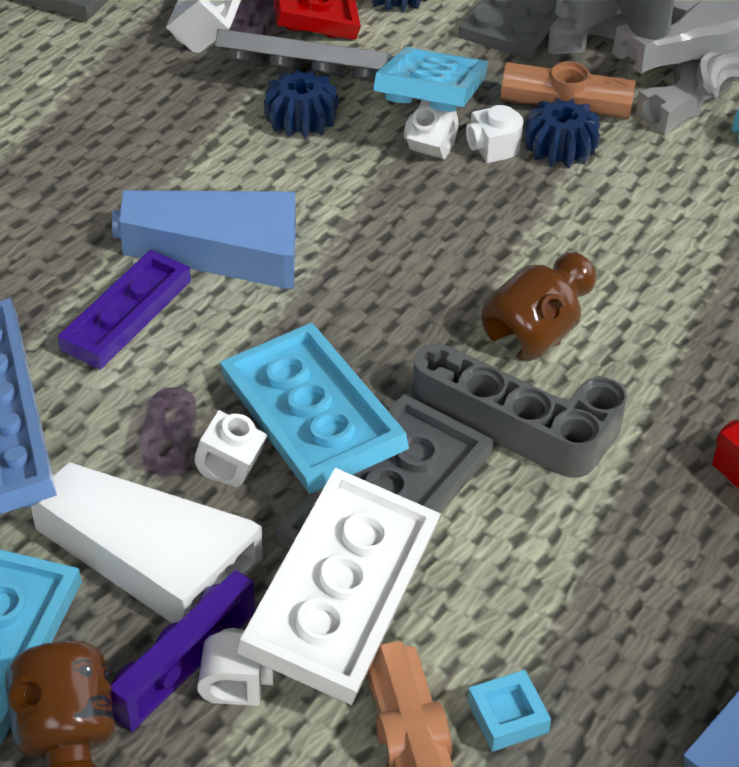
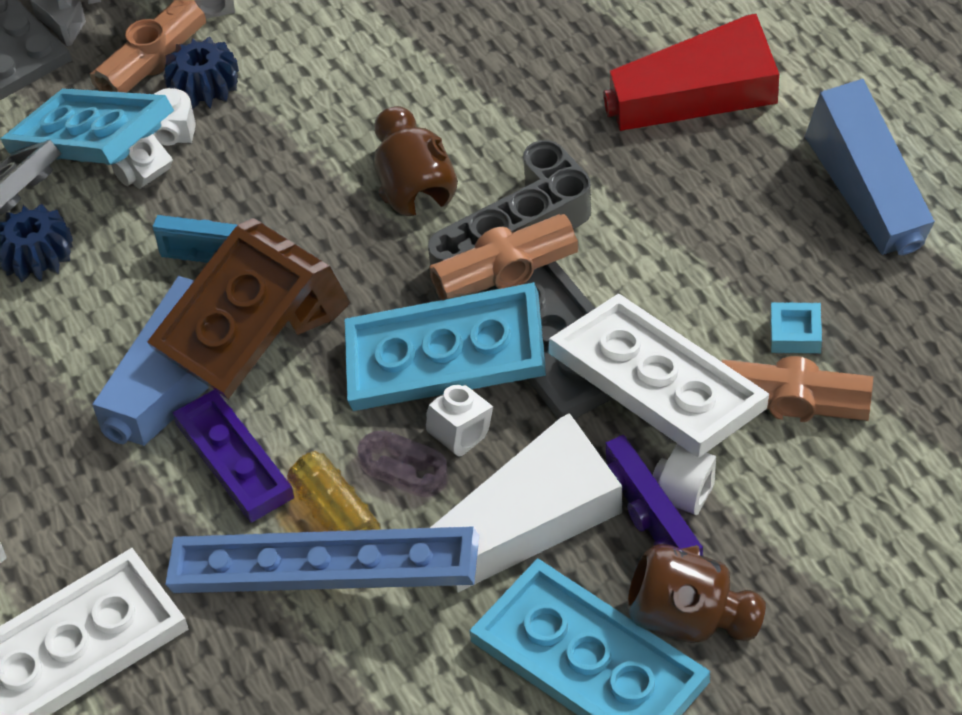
camera: 60 degrees left, 5 degrees up
(95, 393) = (329, 495): none -> clear yellow axle
(295, 233) = (242, 304): none -> reddish brown bracket
(361, 202) = (189, 237): none -> dark azure plate
(441, 407) = (504, 258): none -> nougat piece

